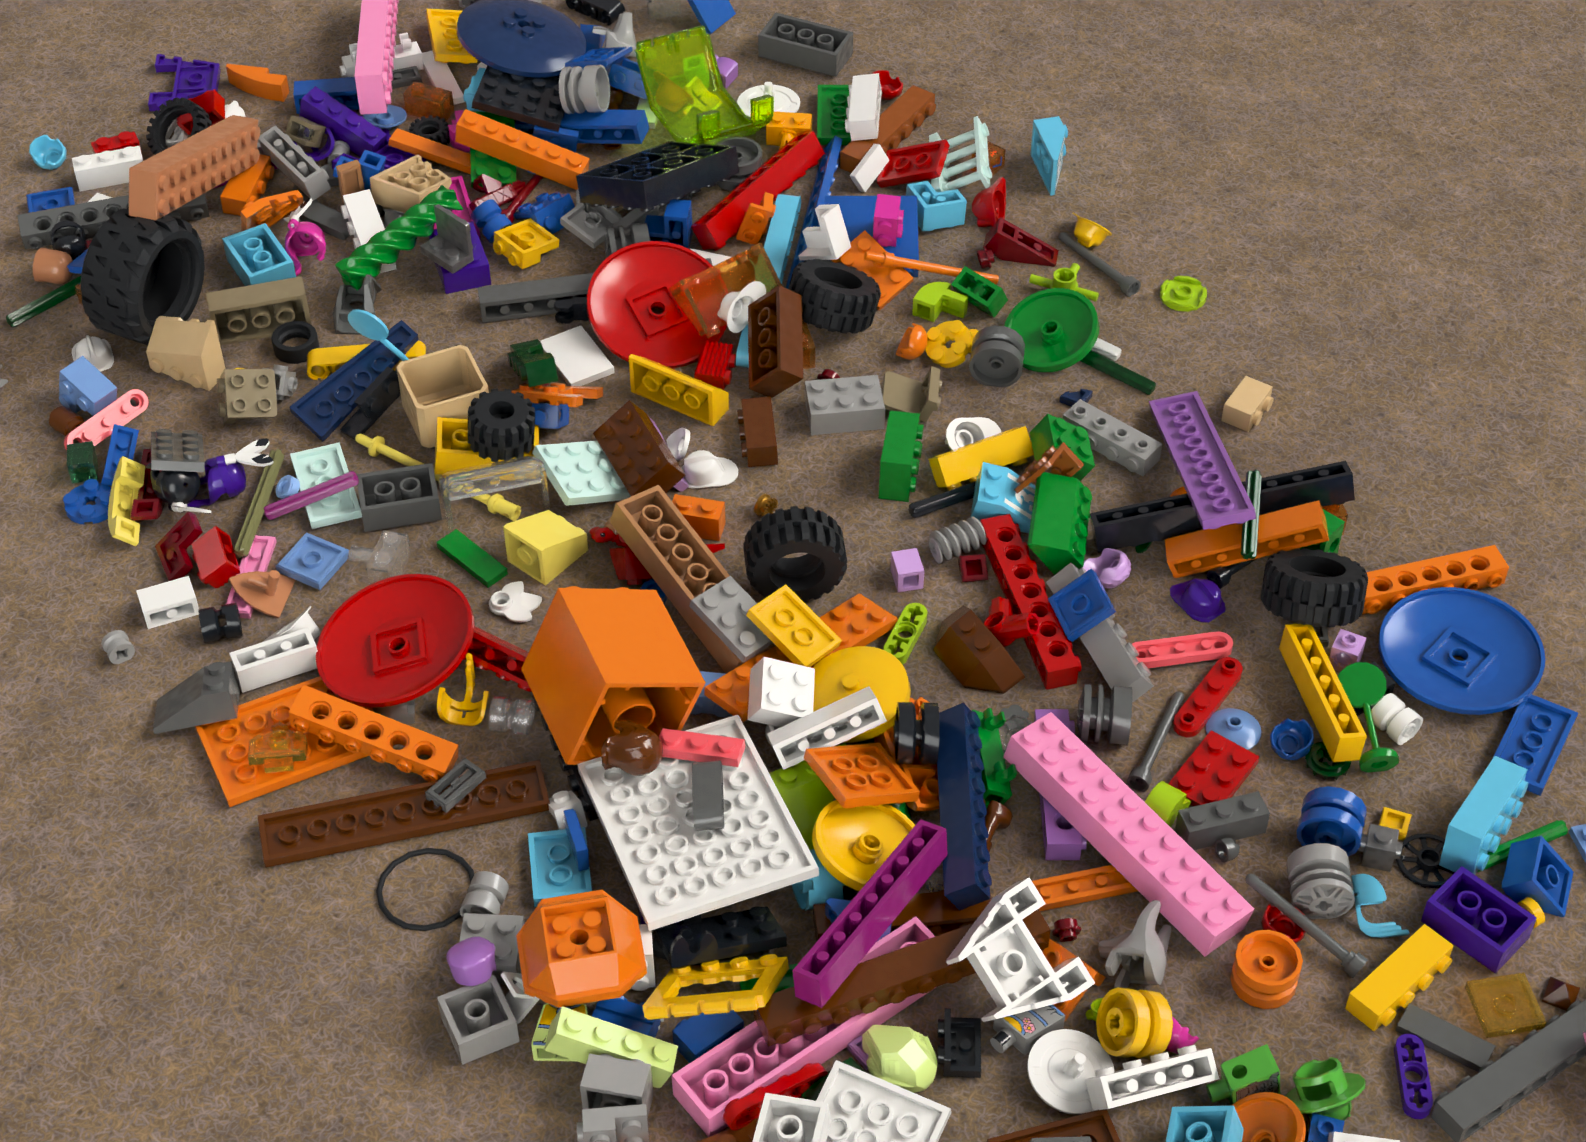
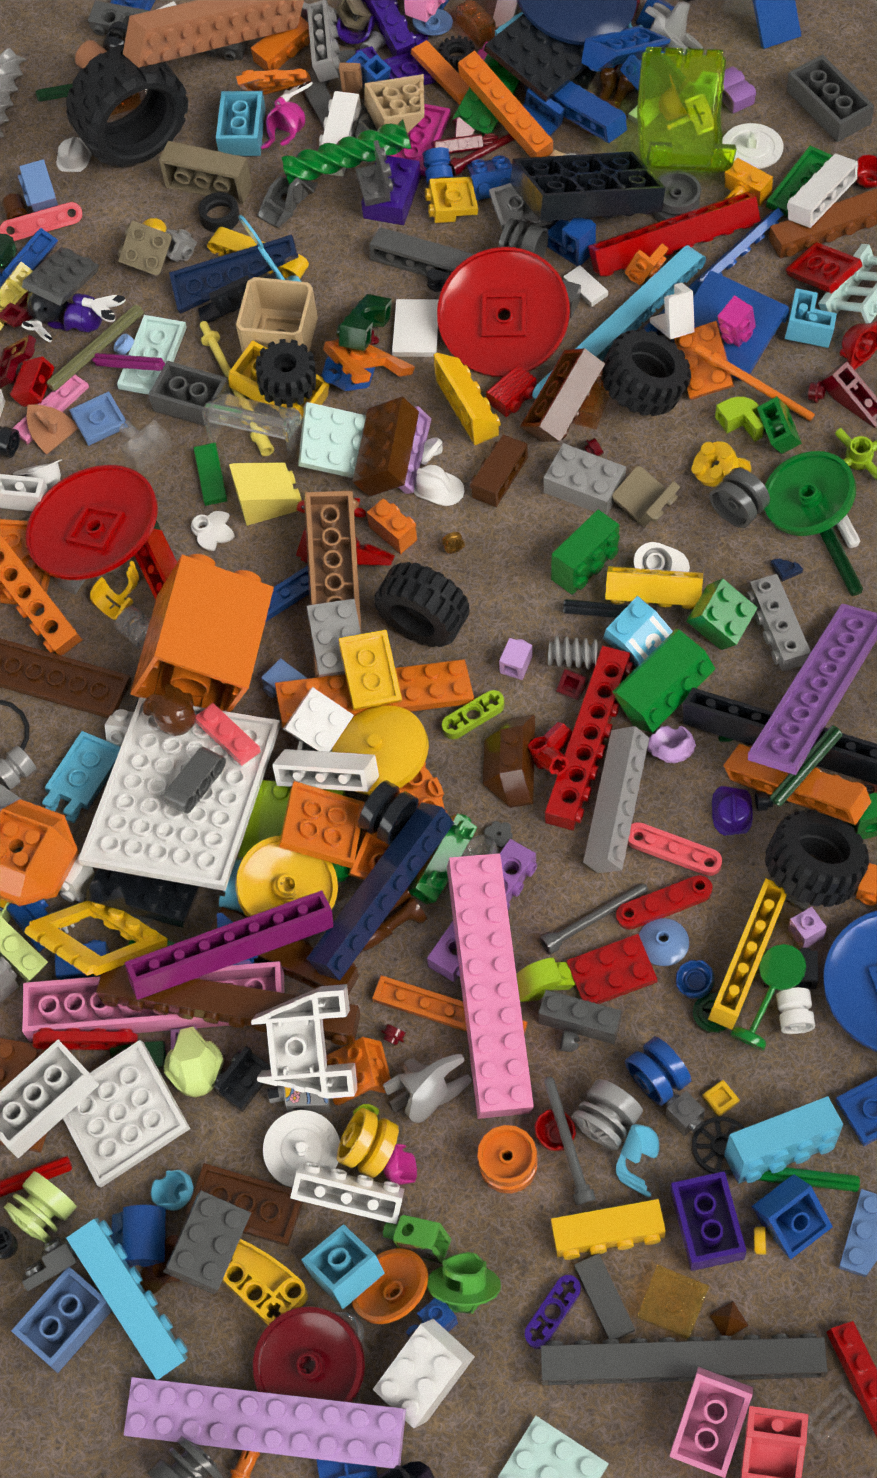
camera: 40 degrees right, 15 degrees up
(186, 351) = (128, 188): tan wedge -> none
(459, 786) = (57, 668): dark grey tile -> none
(576, 839) = (101, 757): blue tile -> none
(584, 89) = (585, 71): light grey wheel -> none
(703, 292) = (557, 326): clear orange windscreen -> none
(735, 305) = (555, 343): white piece -> none
(869, 168) = (784, 254): white tile -> none
(912, 343) = (687, 448): orange hair -> none
(1055, 461) = (694, 626): dark orange bracket -> none
(1081, 605) = (611, 769): blue plate -> none
(1105, 714) = (560, 874): dark grey wheel -> none

